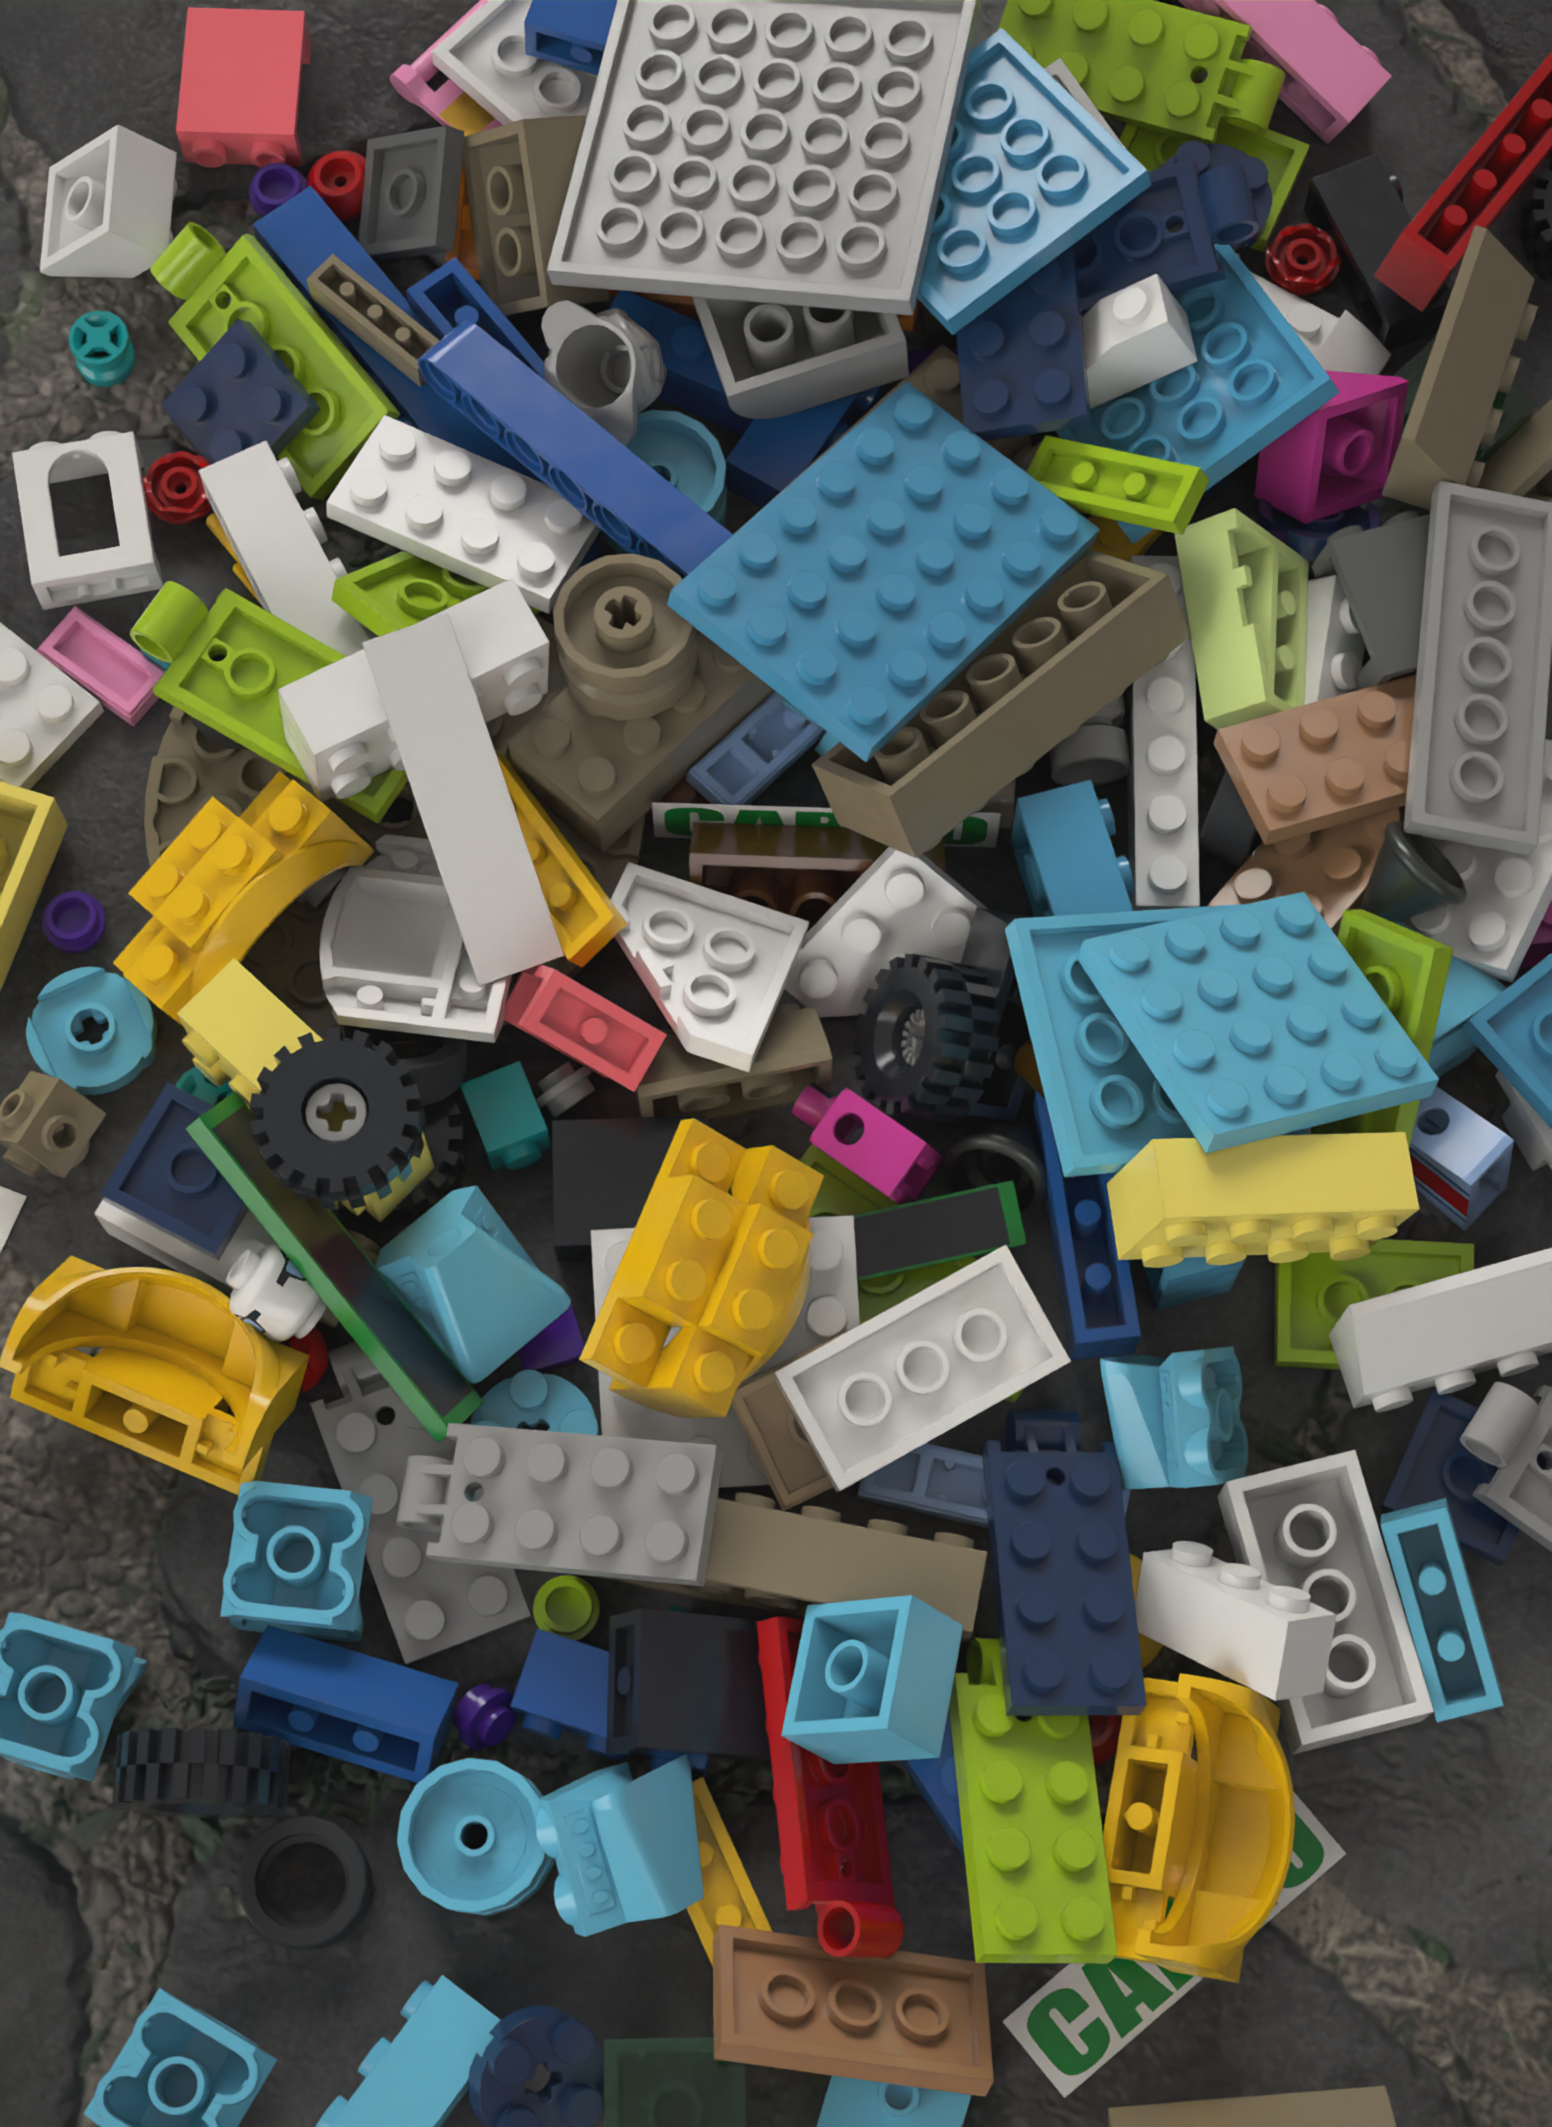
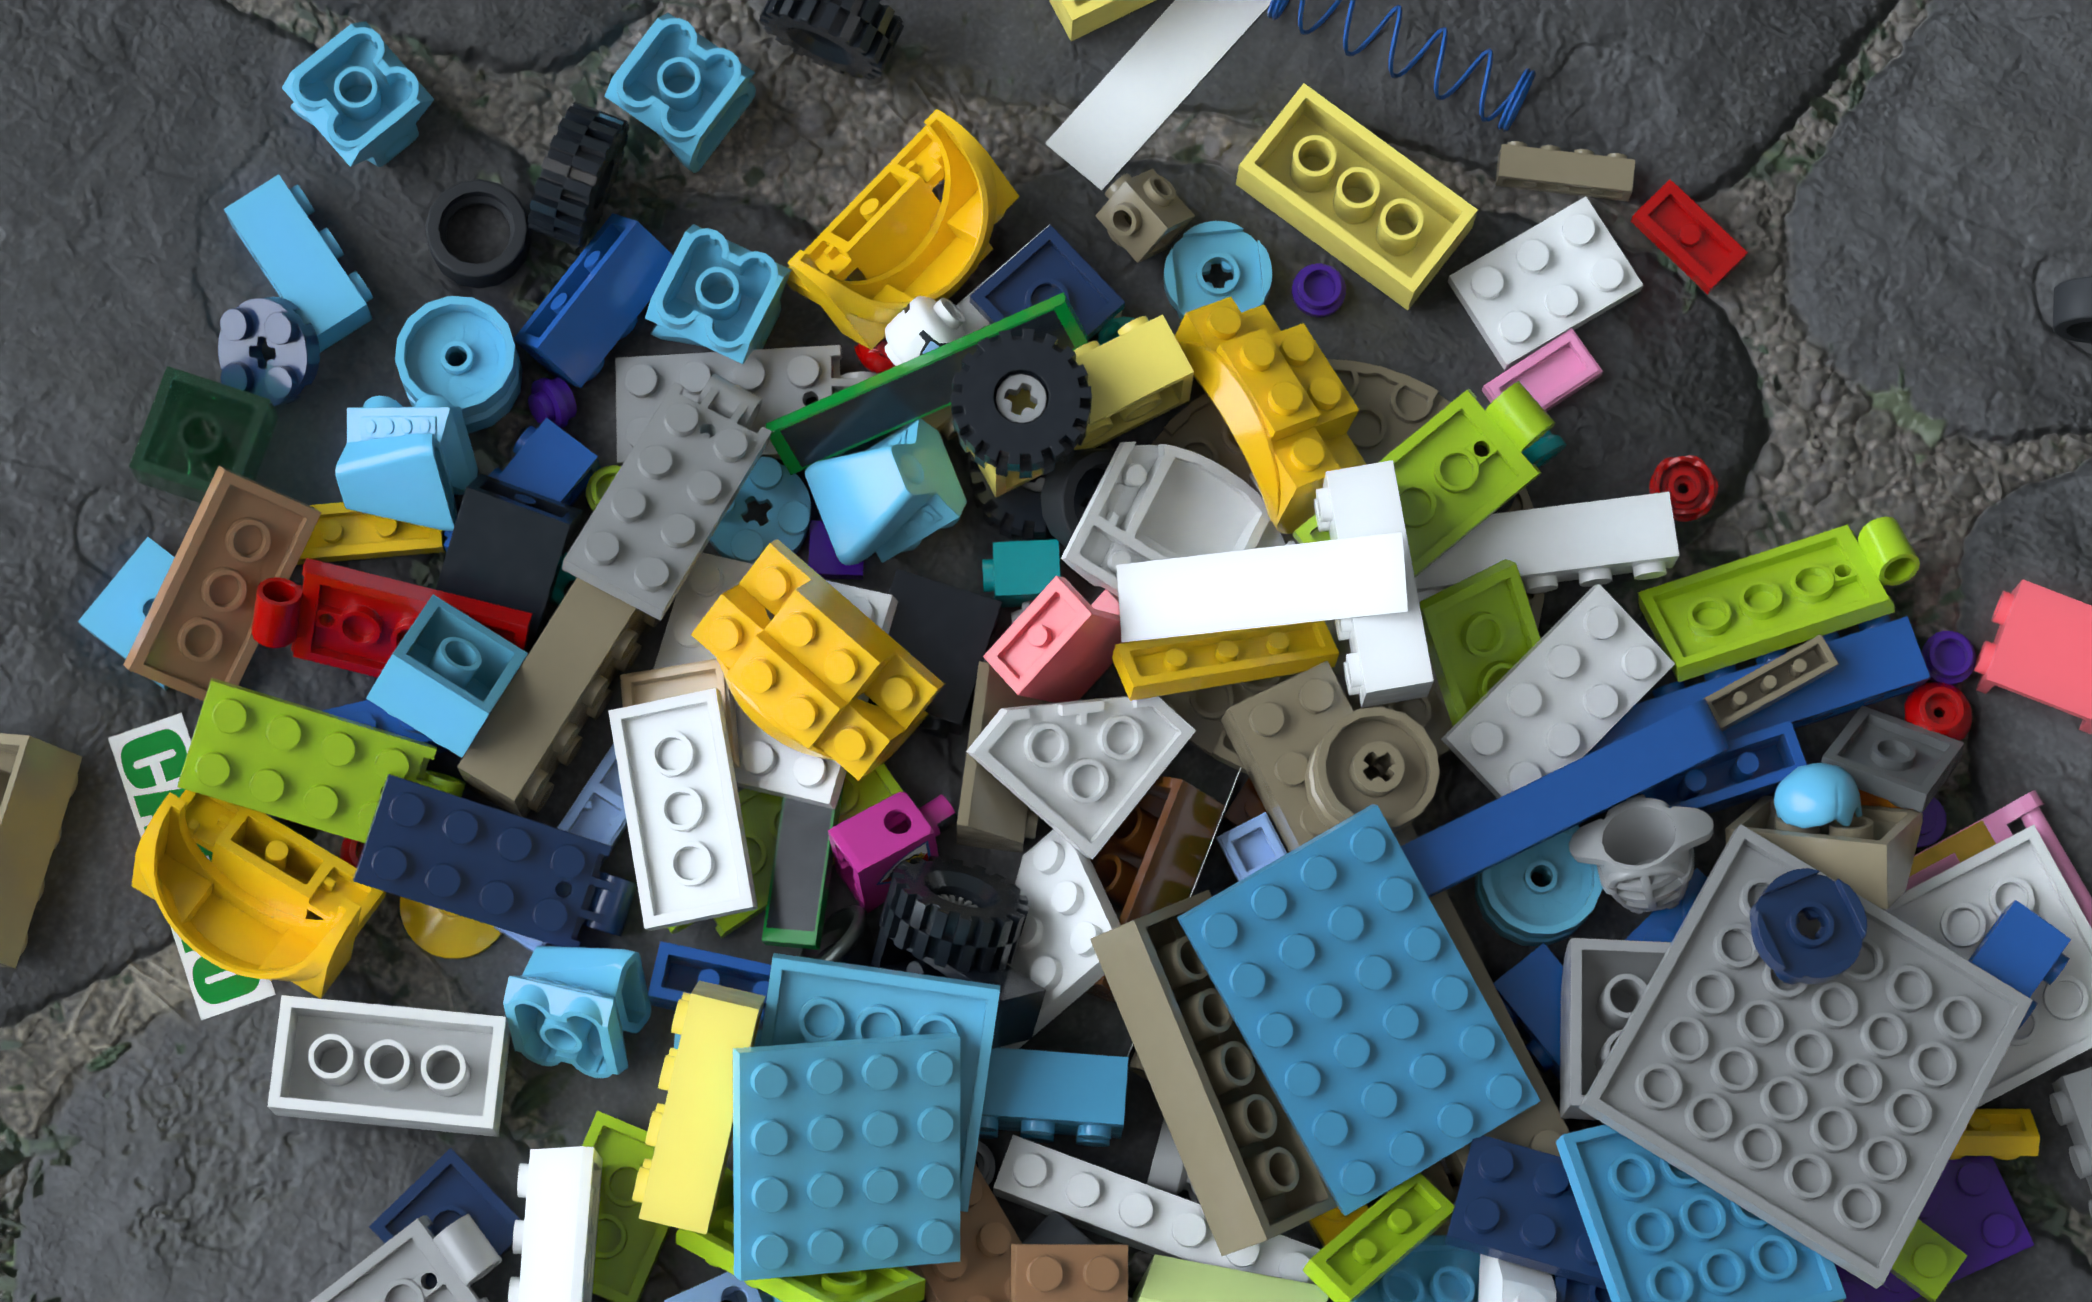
camera: 105 degrees right, 5 degrees up
(95, 573) = (1713, 442): white panel -> none
(98, 333) = (1848, 454): teal wheel -> none
(109, 207) = (1973, 507): white slope -> none
(240, 398) = (1740, 557): dark blue plate -> none
(484, 230) = (1817, 796): none -> medium azure hair
(642, 194) = (1795, 955): none -> dark blue plate
(1234, 1621) = (393, 976): white brick -> none
(1441, 1610) = (346, 1151): medium azure brick -> none

